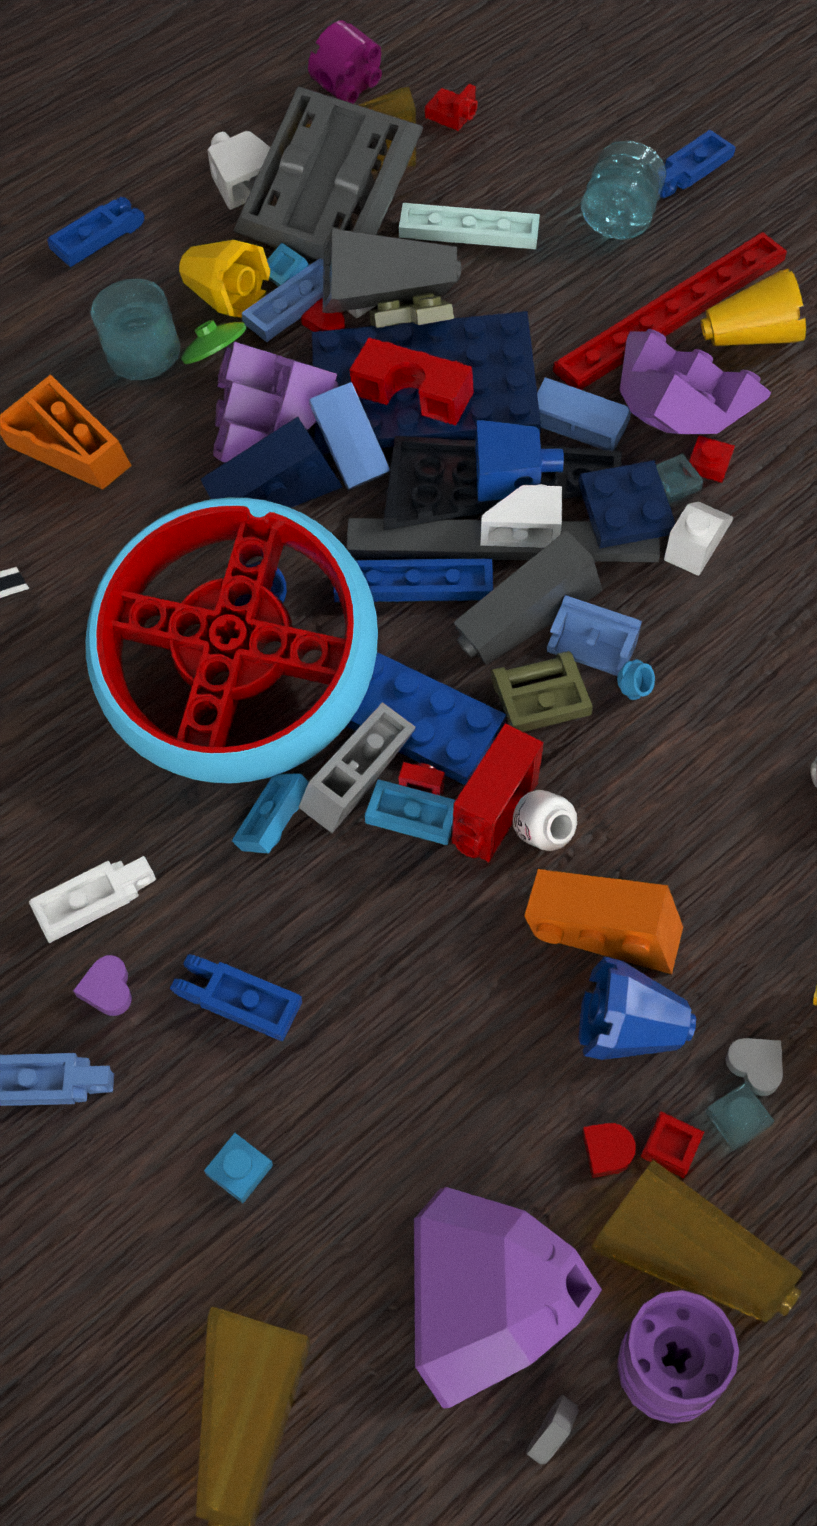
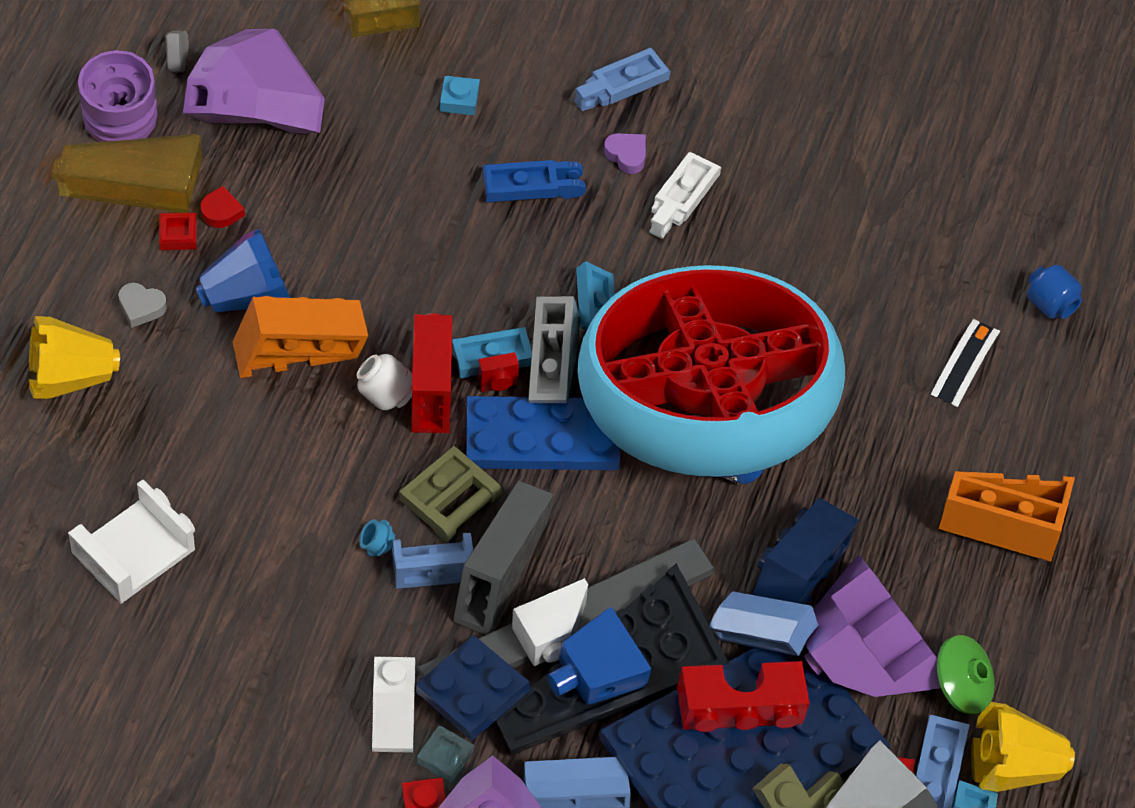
camera: 145 degrees right, 5 degrees down
(135, 329) = (1041, 638): clear light blue wheel -> none
(427, 579) = (617, 538): blue plate -> none
(739, 1116) = (138, 266): clear light blue plate -> none

